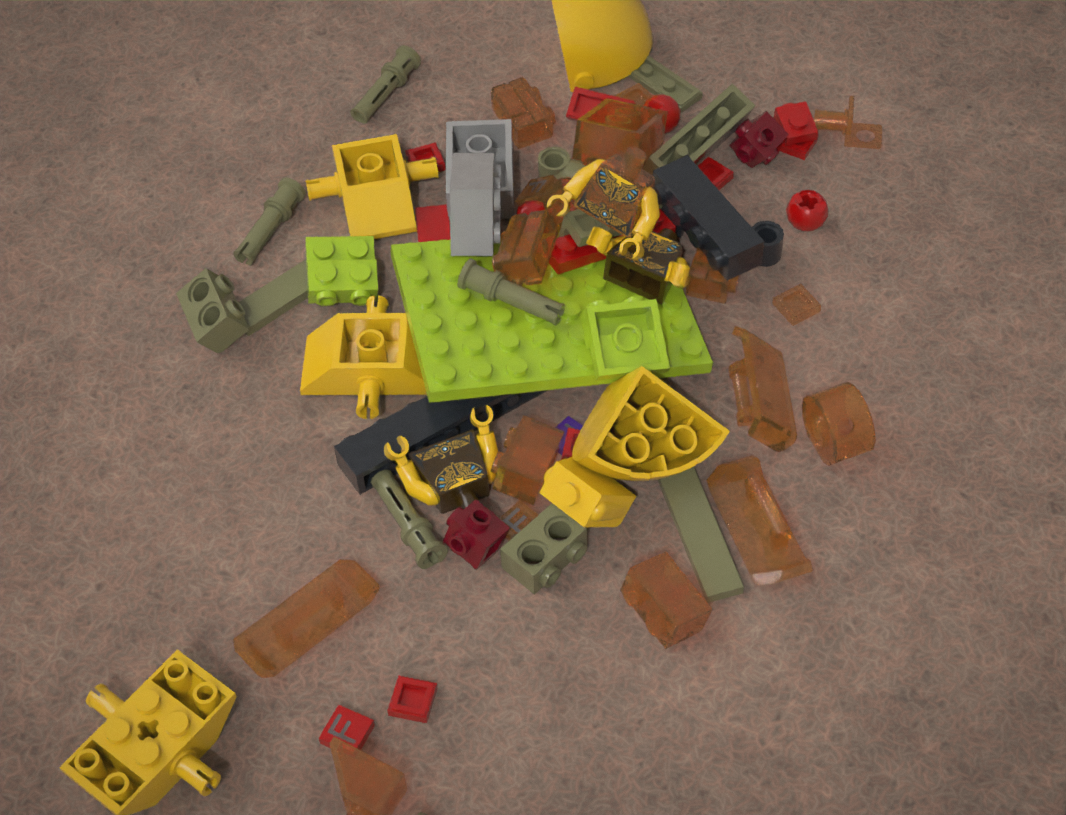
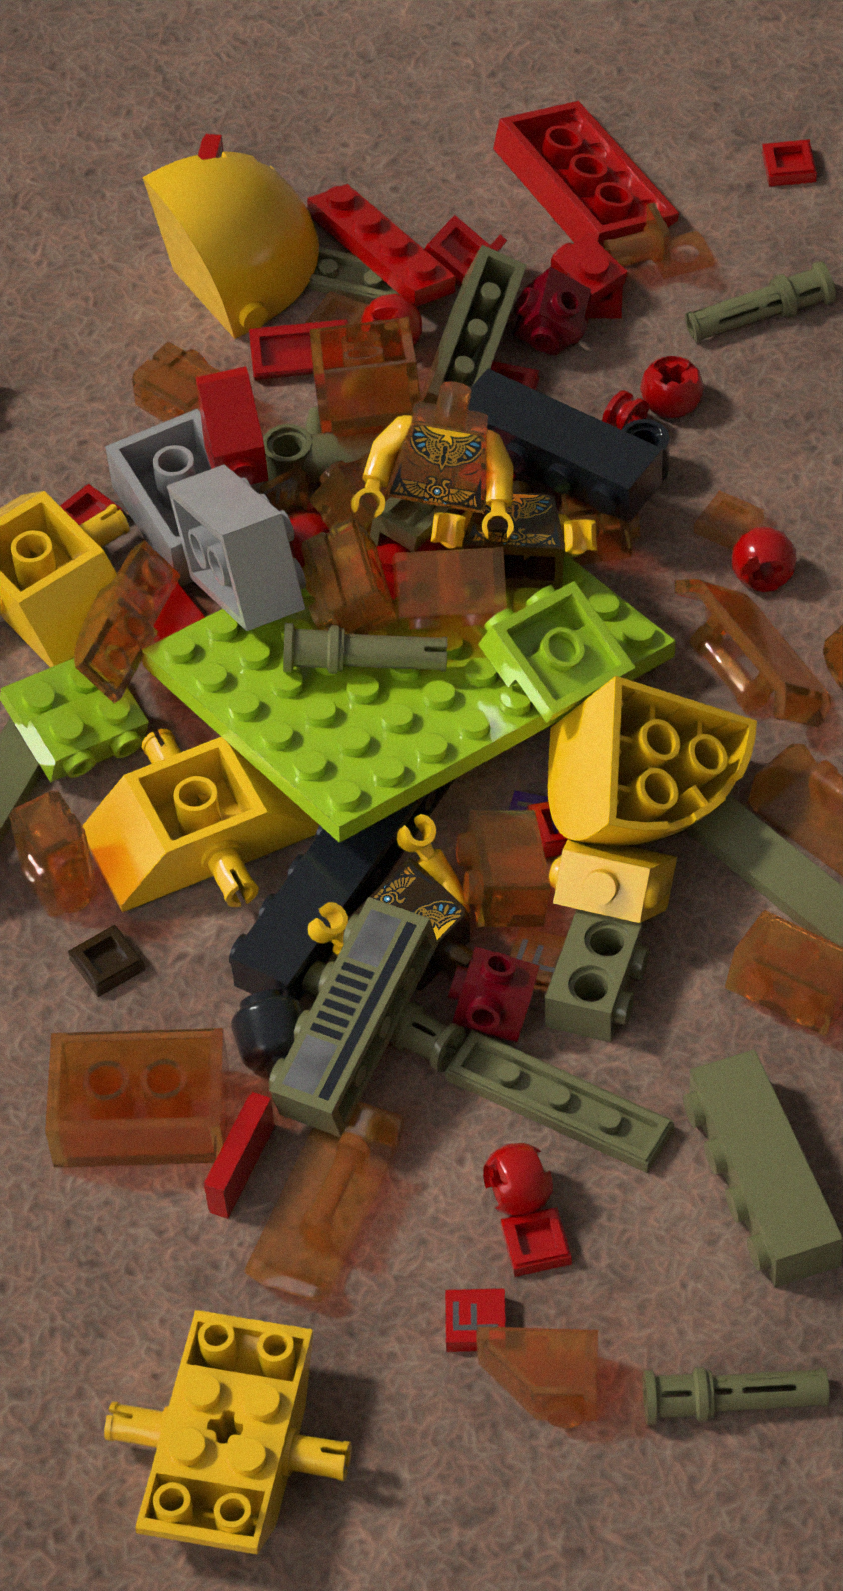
camera: 25 degrees left, 0 degrees up
(232, 507) = (137, 1097): none -> clear orange brick
(271, 567) = (239, 1155): none -> red tile
(274, 343) = (54, 854): none -> clear orange brick
(274, 419) = (106, 960): none -> dark brown tile
(334, 501) = (265, 1028): none -> black head
(377, 511) = (352, 1016): none -> olive brick
(394, 225) = (123, 621): none -> clear orange slope
(420, 654) = (517, 1179): none -> red piece
(481, 618) = (560, 1101): none -> olive tile
(512, 134) = (232, 424): none -> red slope
(574, 717) = (764, 1169): none -> olive brick
(583, 274) = (449, 585): none -> clear orange brick
(683, 66) = (381, 245): none -> red plate
(724, 77) = (457, 247): none -> red bracket
(769, 212) = (624, 409): none -> red bush
(802, 335) = (764, 559): none -> red piece
(828, 66) = (579, 173): none -> red slope
(910, 181) = (782, 296): none -> olive pin
(961, 104) = (789, 162): none -> red tile

